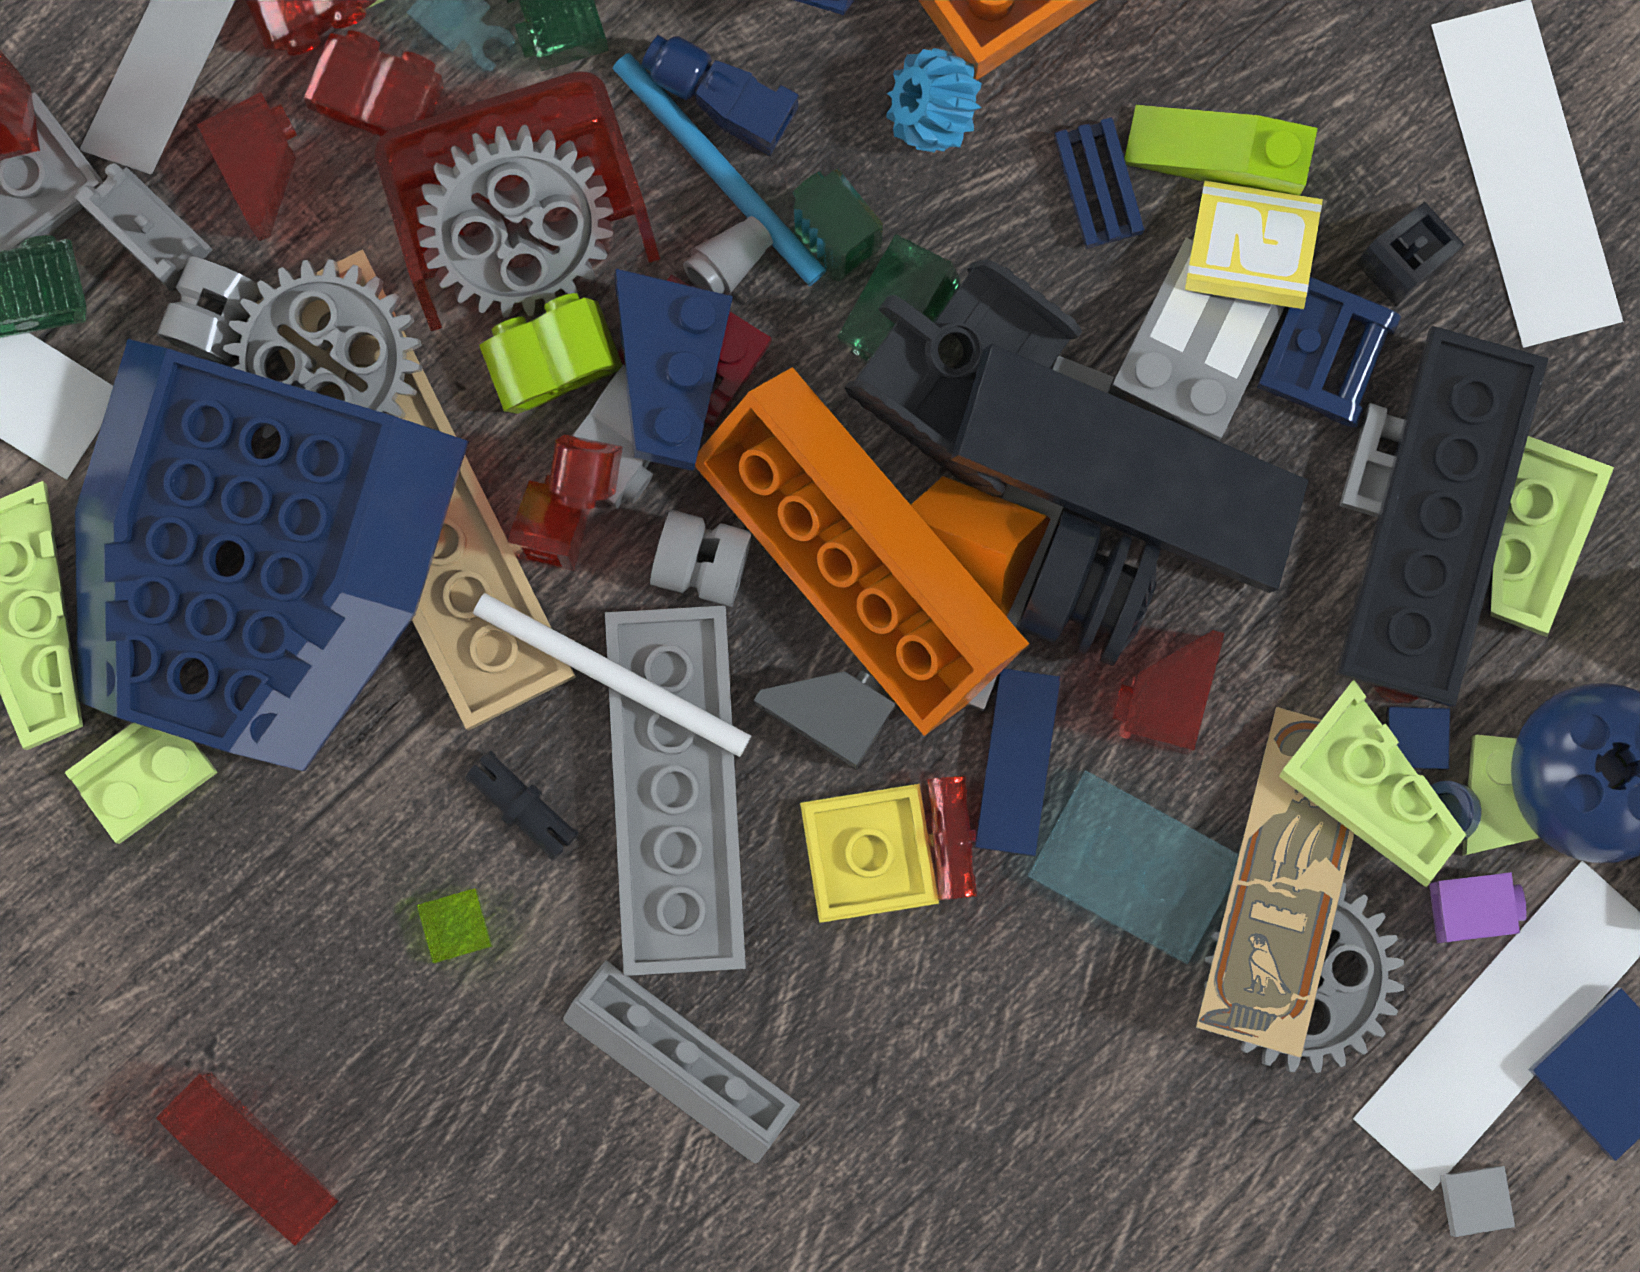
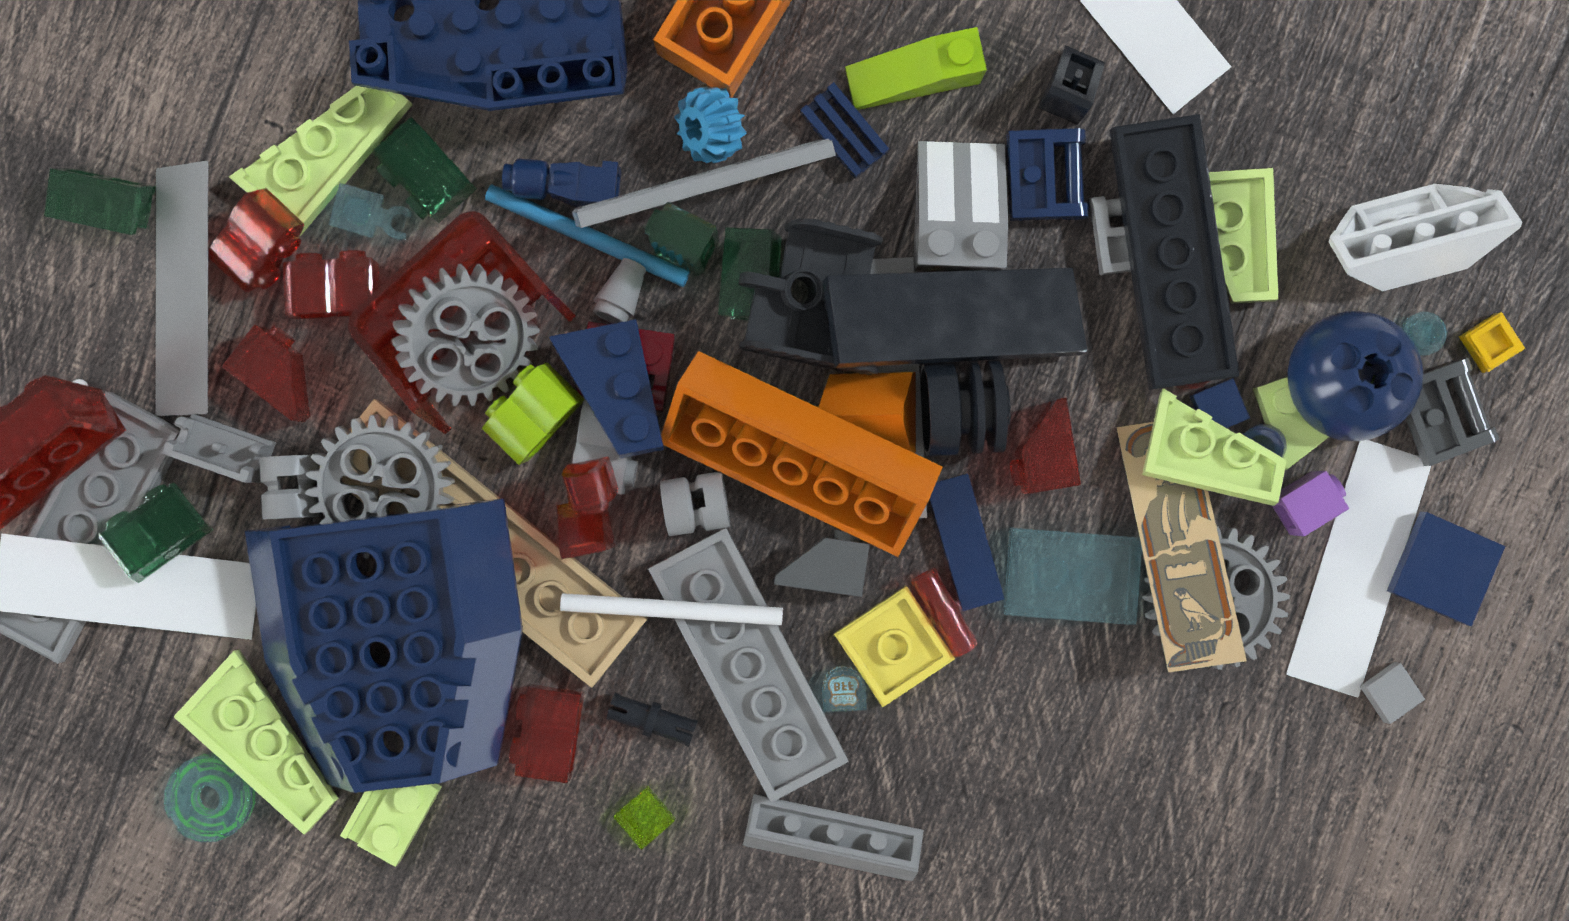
camera: 25 degrees left, 5 degrees up
(384, 761) = (548, 733): none -> clear red brick
(779, 880) = (843, 690): none -> clear light blue tile
(893, 166) = (702, 182): none -> light grey tile
(1254, 244) = (968, 126): tile -> none

